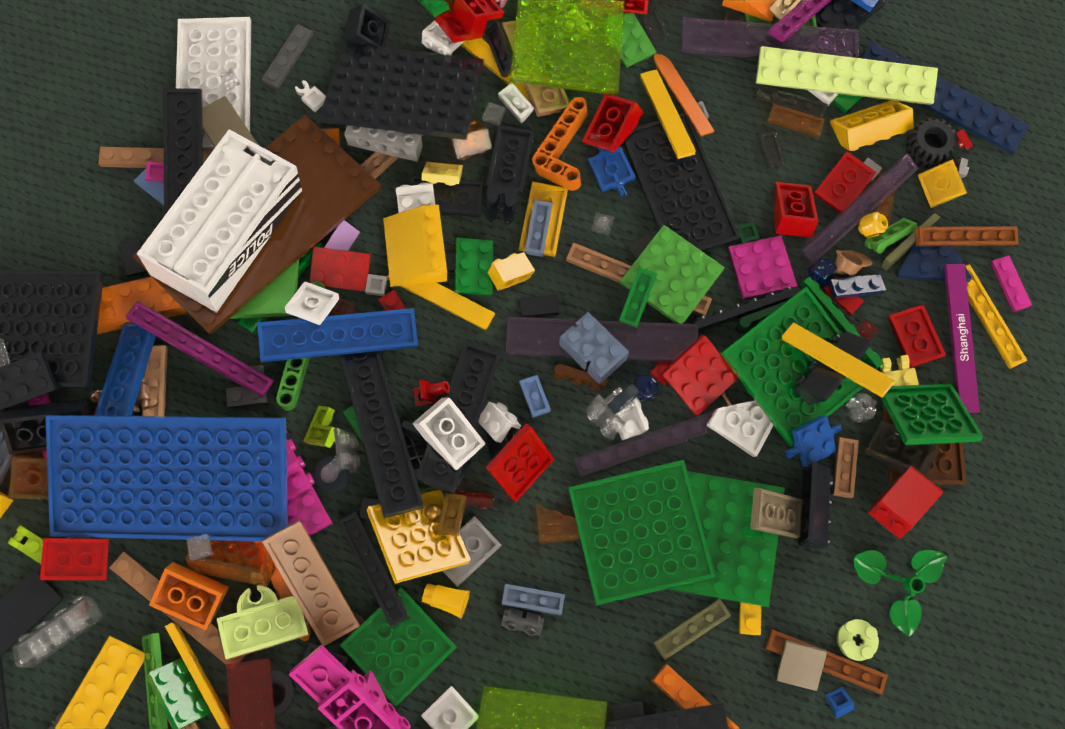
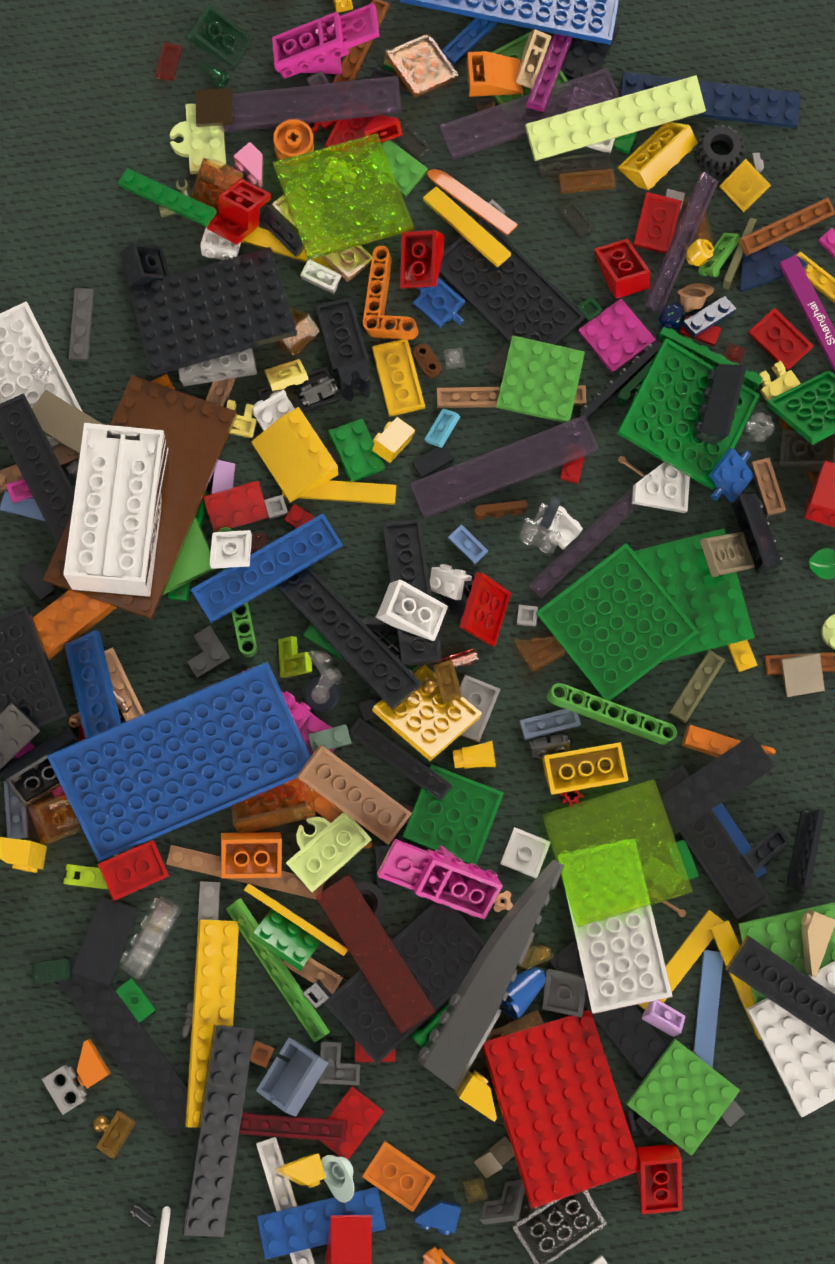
camera: 25 degrees left, 5 degrees up
(13, 686) = (135, 1000): none -> green plate
(130, 622) = (209, 901): none -> light grey plate
(199, 349) = (148, 636): magenta tile -> none
(199, 547) = (242, 808): clear plate -> none
(311, 97) = (126, 355): white plate -> none
(317, 518) = (330, 738): none -> sand green plate
(382, 200) = (243, 425): none -> light yellow plate
(429, 392) = (373, 582): red bracket -> none
(456, 198) = (324, 387): none -> dark grey hinge
(494, 113) = (305, 296): clear plate -> none
(514, 681) = (567, 799): none -> red gear
(538, 228) = (399, 388): sand blue plate -> none
(545, 660) = (585, 768): none -> yellow slope
(559, 486) = (527, 615): none -> light grey plate
(561, 280) = (442, 428): none -> medium azure plate
(576, 214) = (427, 360): none -> reddish brown plate
(593, 344) = (502, 474): sand blue piece -> none
(605, 620) = (620, 712): none -> bright green beam
(638, 297) = (520, 414): green plate -> none
(649, 390) = (564, 491): clear blue head -> none
(699, 375) = (606, 461): red plate -> none
(838, 360) = (722, 394): yellow tile -> none
(963, 140) = (748, 135): red plate -> none

